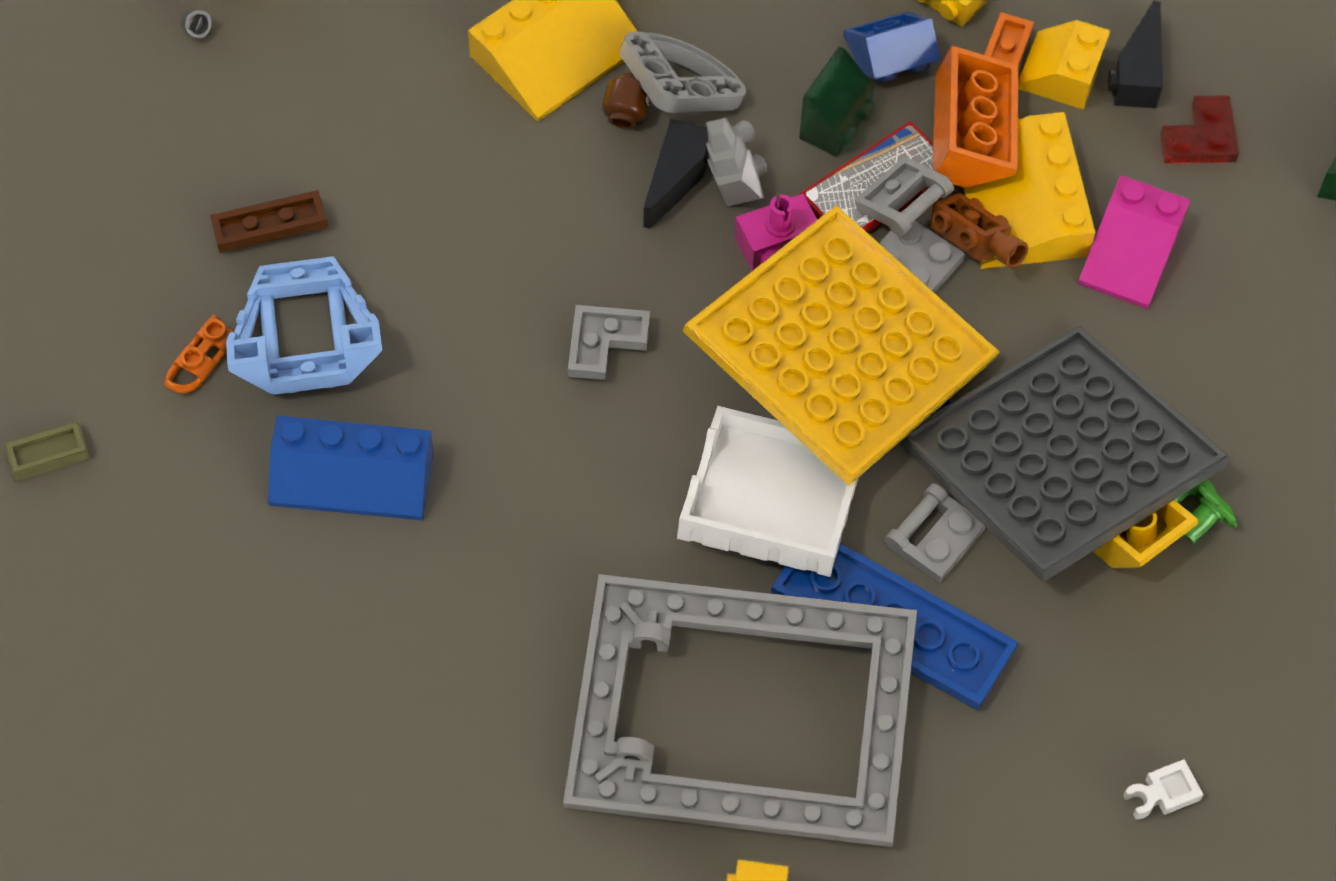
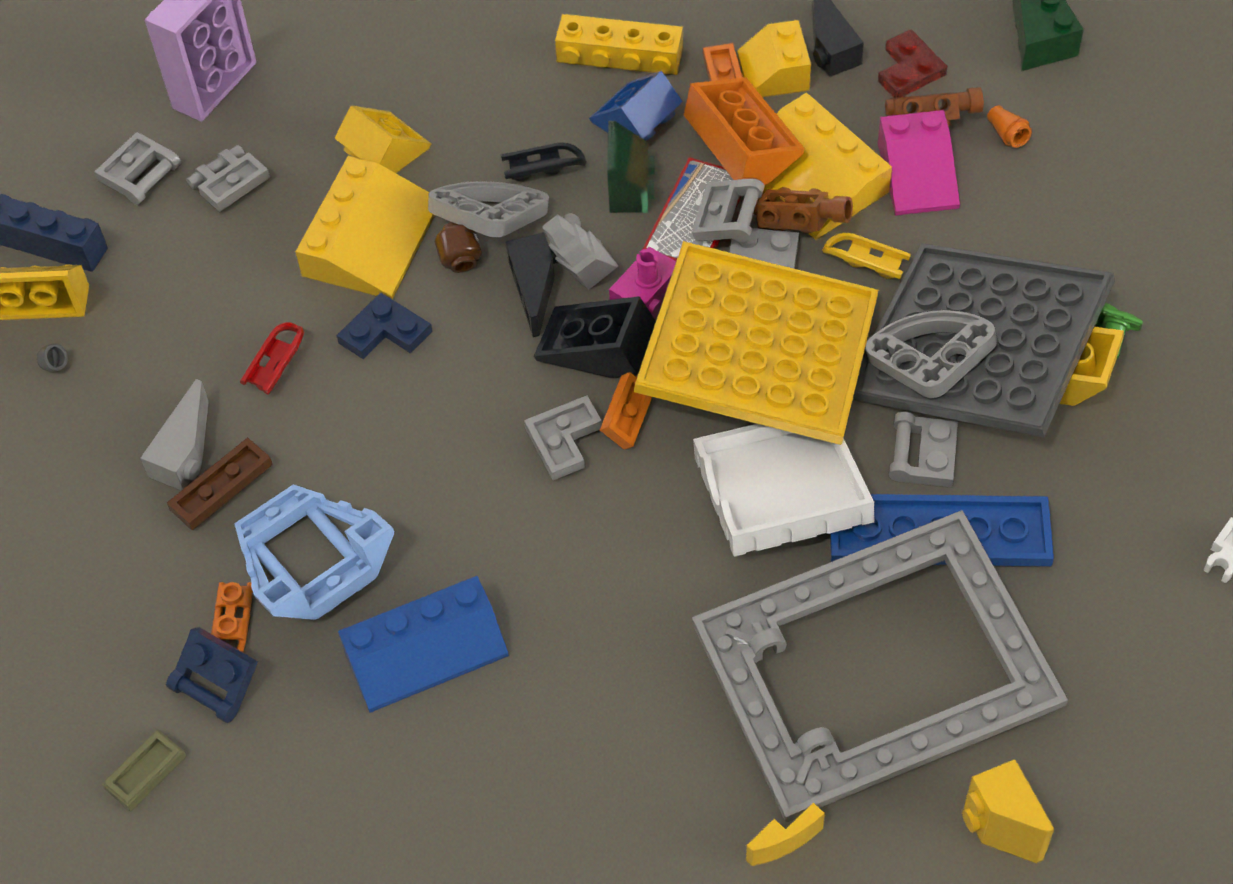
camera: 25 degrees left, 5 degrees down
(161, 391) = (217, 663): none -> dark blue plate
(257, 164) = (178, 447): none -> light grey slope
(399, 124) = (280, 356): none -> red piece
(511, 138) = (382, 320): none -> dark blue plate
(537, 820) = (777, 841): none -> yellow slope
(670, 350) = (625, 413): none -> orange plate
(696, 256) = (598, 336): none -> black slope
(771, 59) = (549, 163): none -> black piece
(983, 455) = (926, 368): none -> light grey beam
(1009, 307) = (859, 255): none -> yellow piece
(1182, 184) = (952, 103): none -> dark orange brick
(1256, 252) = (1011, 128): none -> orange cone

